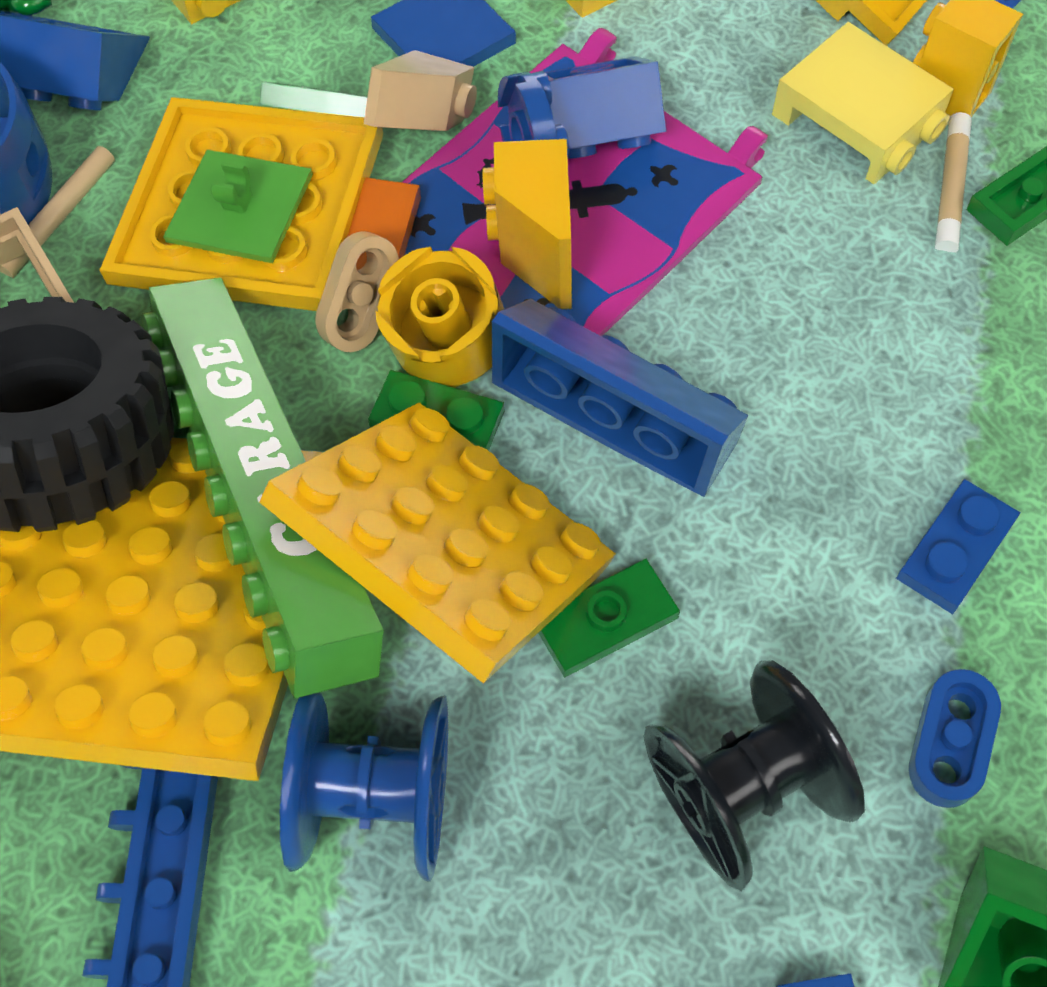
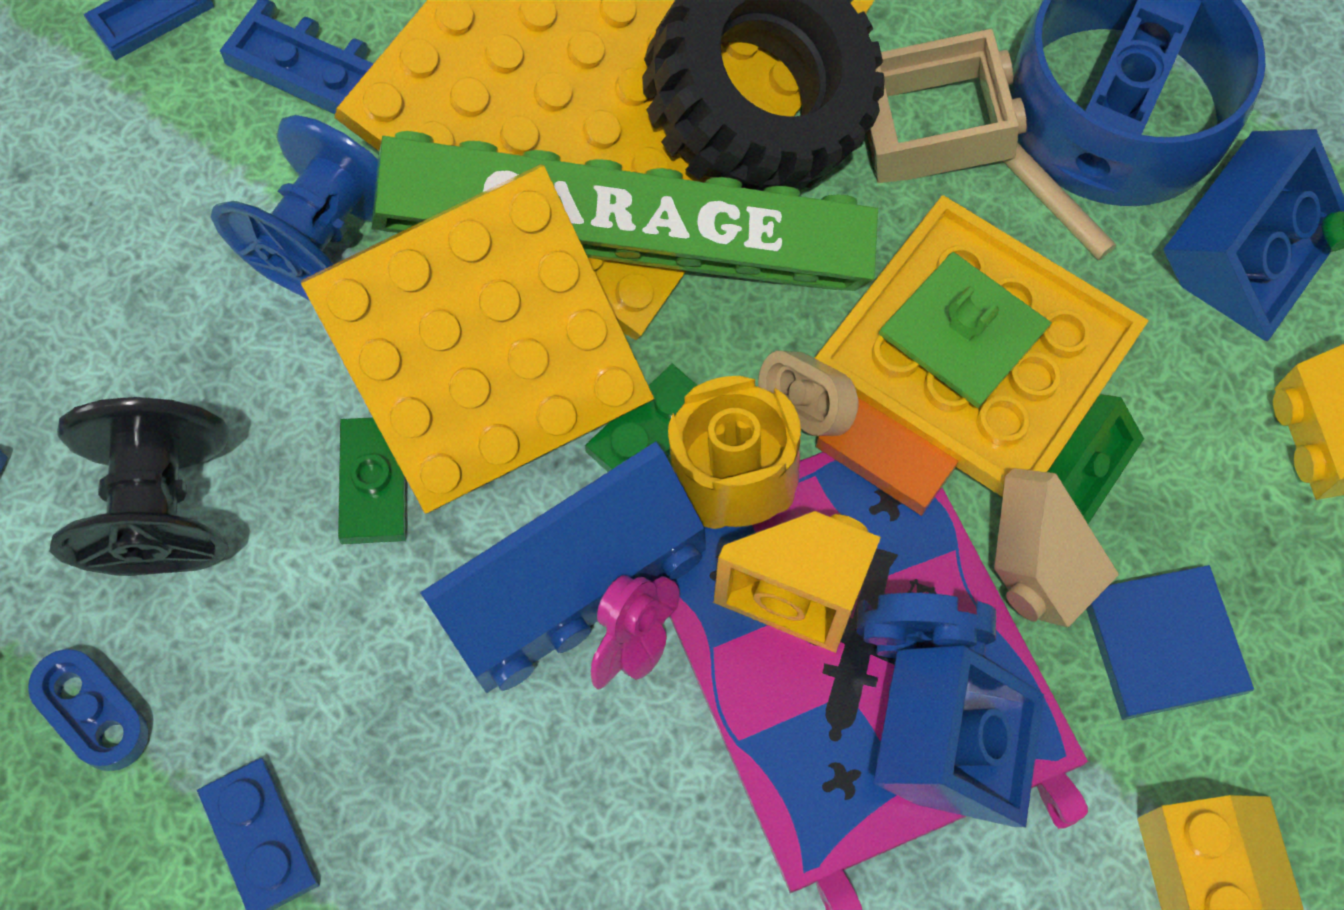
camera: 110 degrees right, 5 degrees up
(638, 320) = (634, 620): none -> dark pink plate

